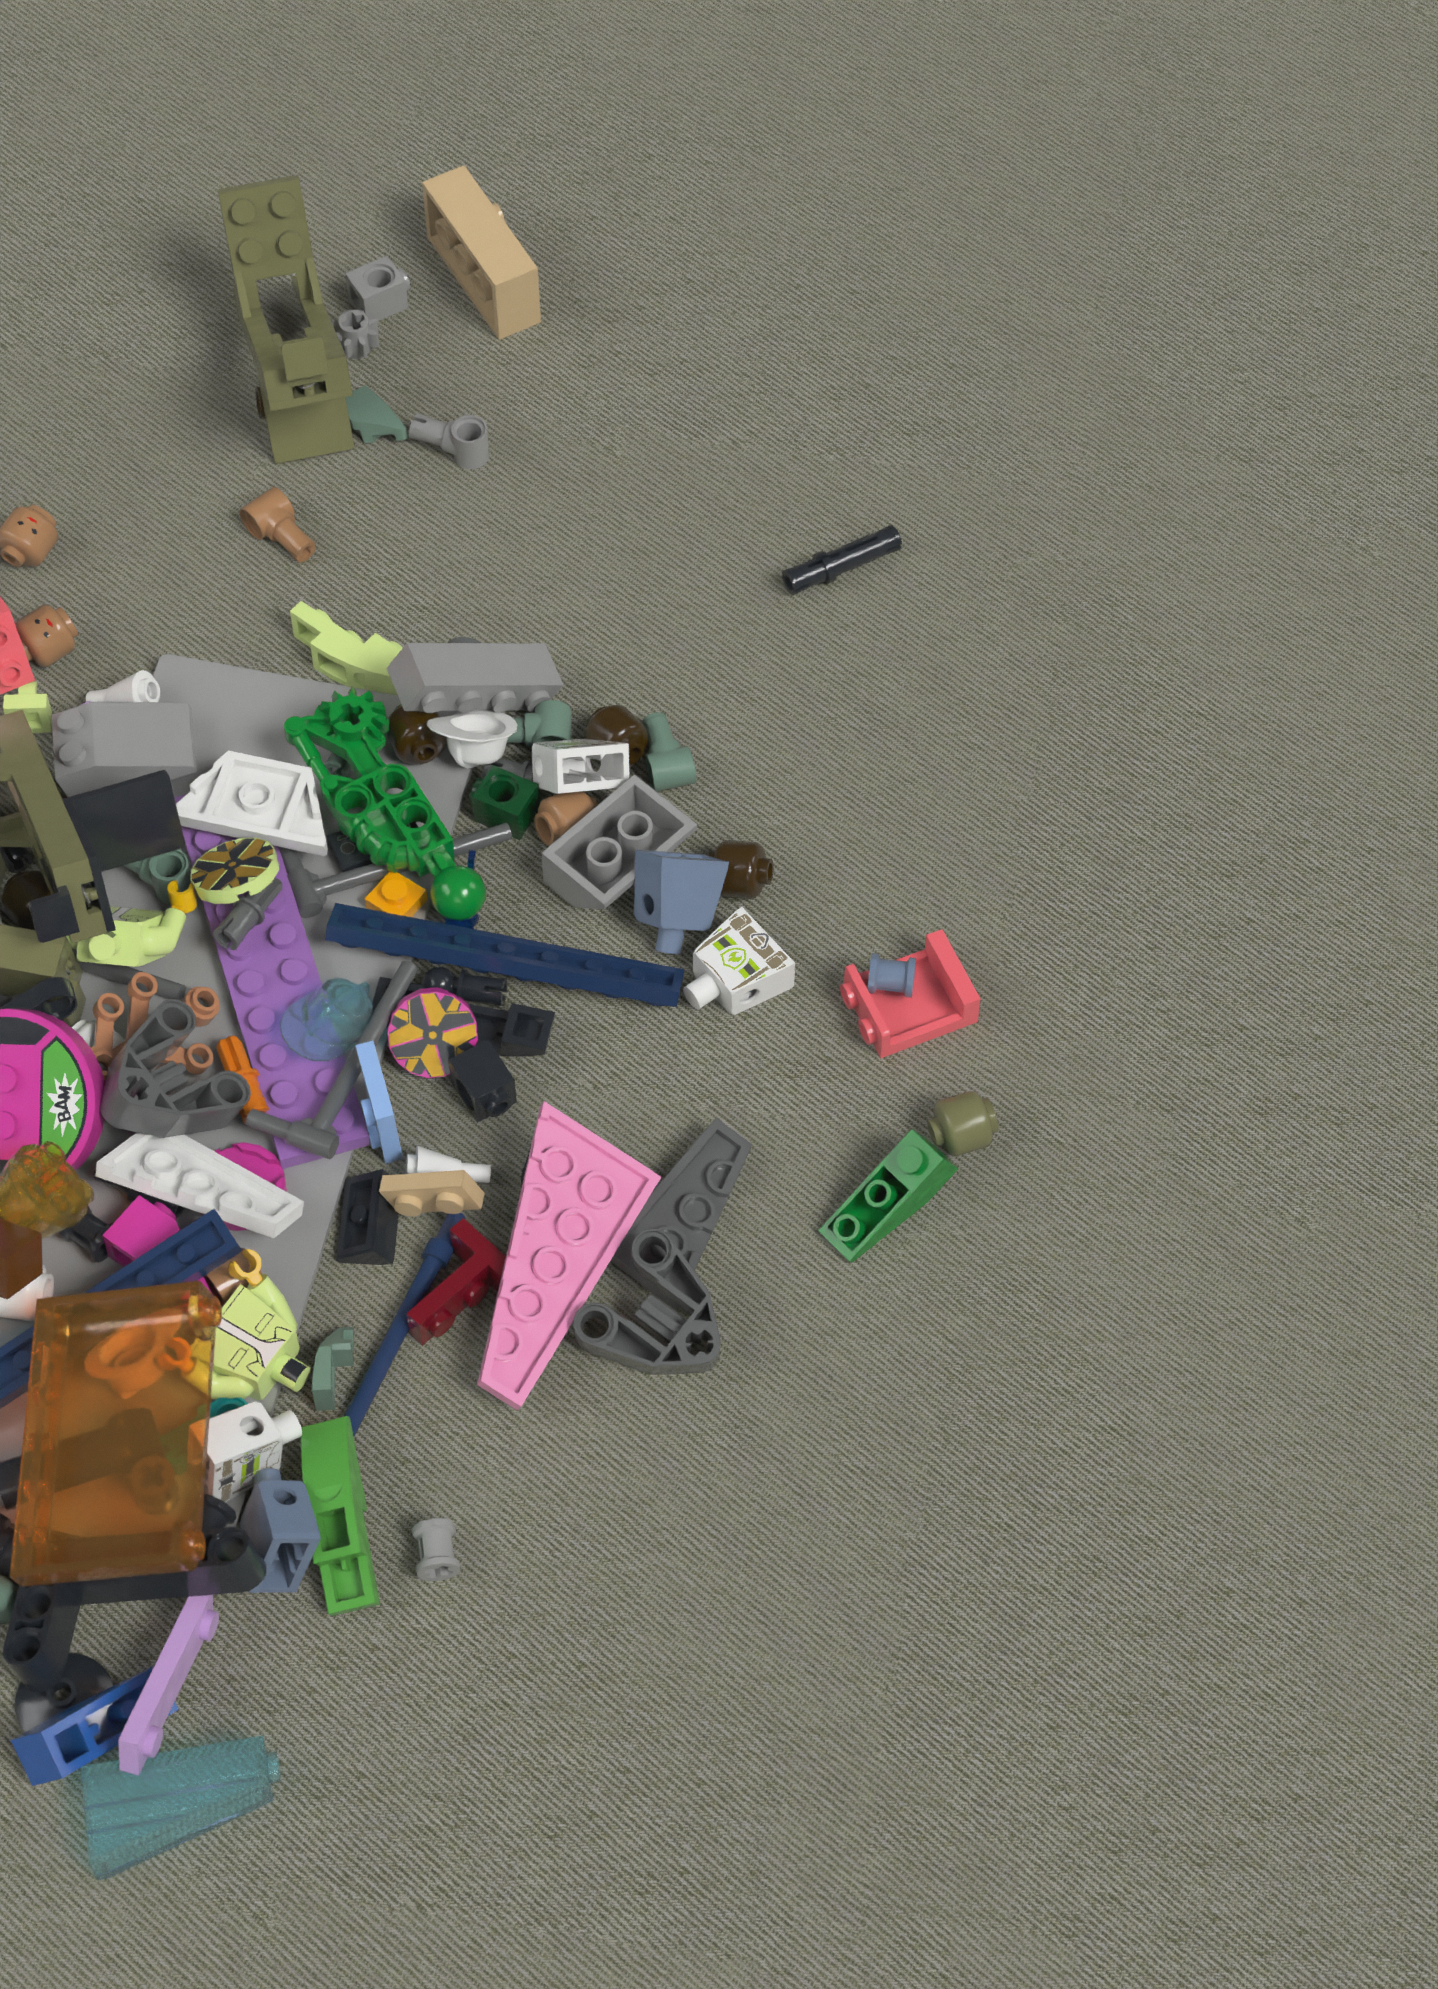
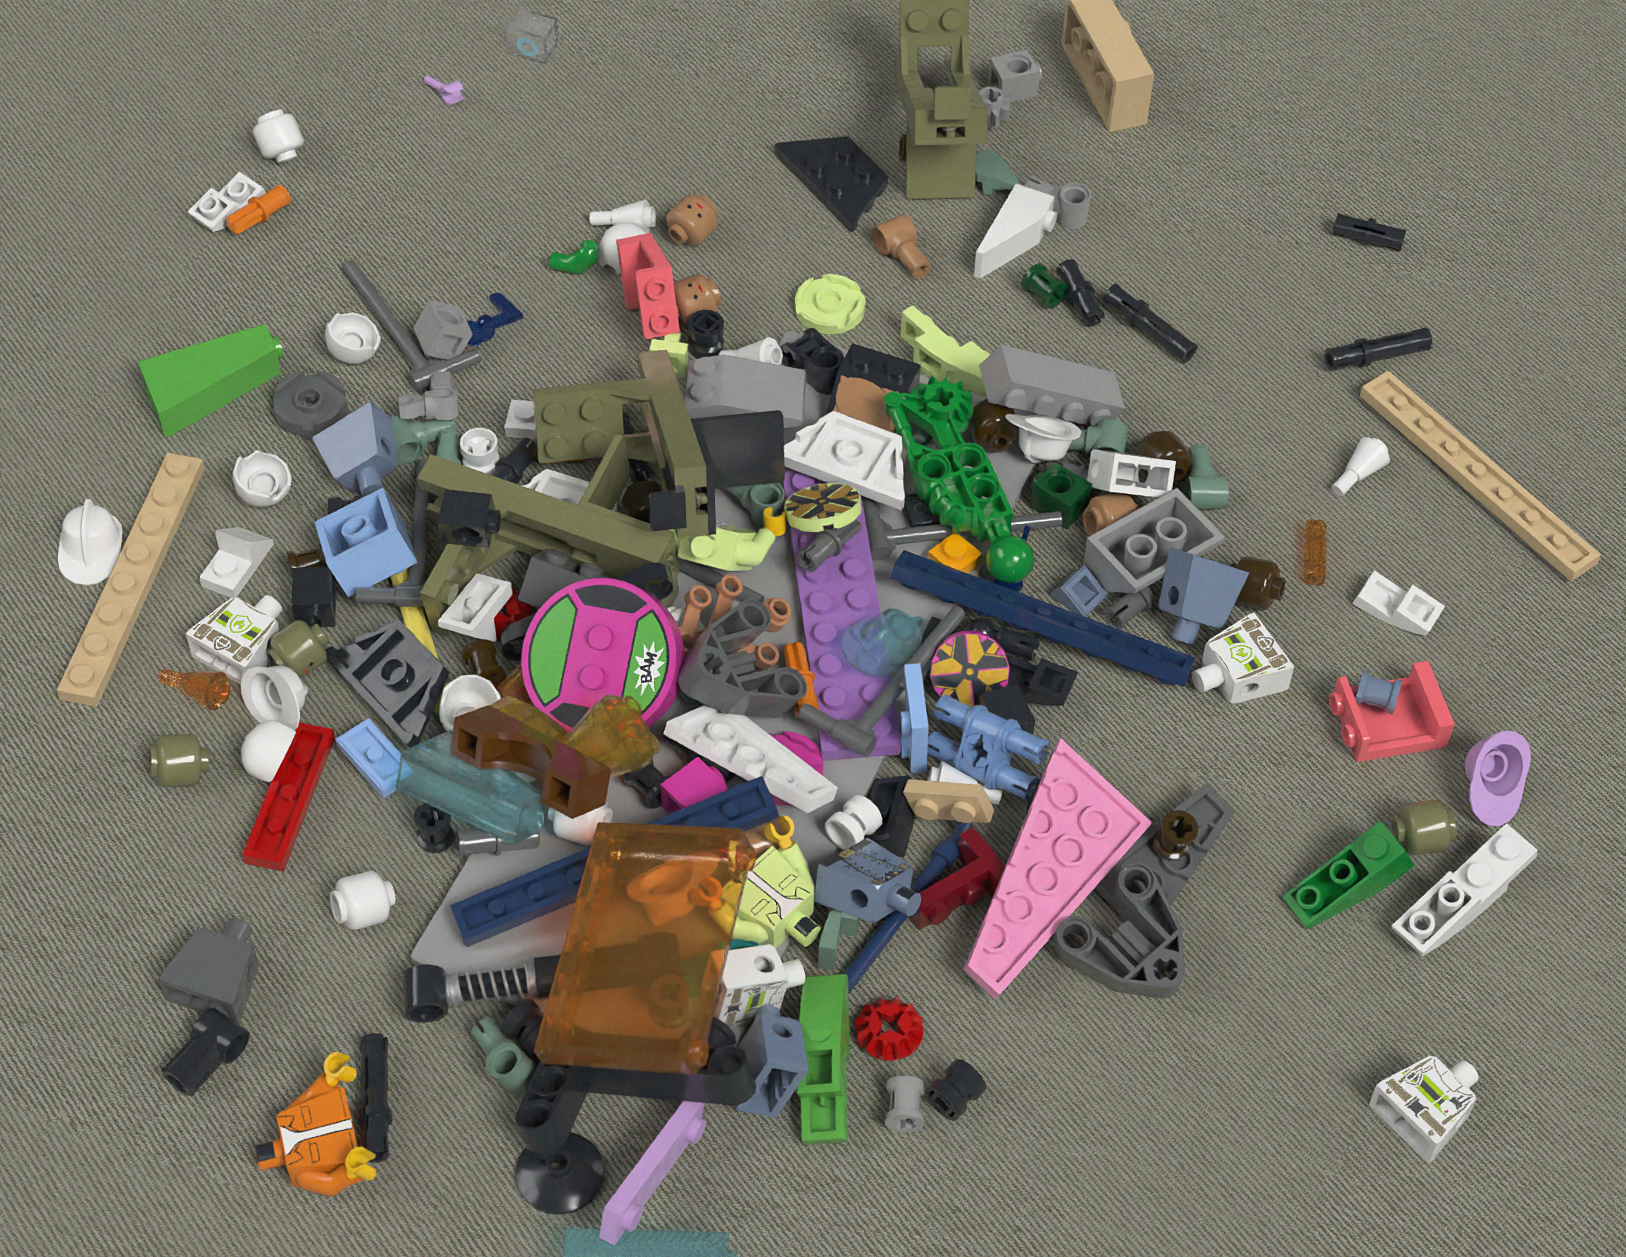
camera: 10 degrees right, 5 degrees down
(66, 676) = (705, 333): none -> black wheel
(79, 1732) = (568, 1199): blue slope -> none
(188, 448) = (836, 175): none -> black wing
(202, 687) = (816, 357): none -> black piece
(205, 612) = (830, 304): none -> yellowish green tile
(259, 706) = (866, 379): none -> slope
(326, 1241) = (858, 819): none -> white wheel
(353, 1305) = (866, 883): none -> sand blue torso
(407, 482) = (1016, 228): none -> white slope
(410, 1484) = (889, 1045): none -> red gear
(450, 547) = (1044, 286): none -> dark green bush
(464, 1121) = (987, 747): none -> medium blue pin
(488, 1524) = (956, 1089): none -> black wheel
(493, 548) = (1080, 293): none -> black pin
(539, 551) = (1120, 299): none -> black pin
(544, 913) = (1079, 591): none -> sand blue slope
(603, 922) = (1129, 606): none -> dark grey pin
(699, 1180) = (1180, 835): none -> dark brown bush
(785, 414) = (1369, 231): none -> black pin
(802, 818) = (1315, 552): none -> clear orange axle
(845, 697) = (1367, 458): none -> white cone
(906, 868) = (1406, 610): none -> white slope
(973, 694) = (1480, 476): none -> tan plate
(1004, 1438) = (1426, 1103): none -> white torso
(1017, 1190) = (1466, 892): none -> white slope
(1035, 1050) = (1497, 776): none -> lavender piece

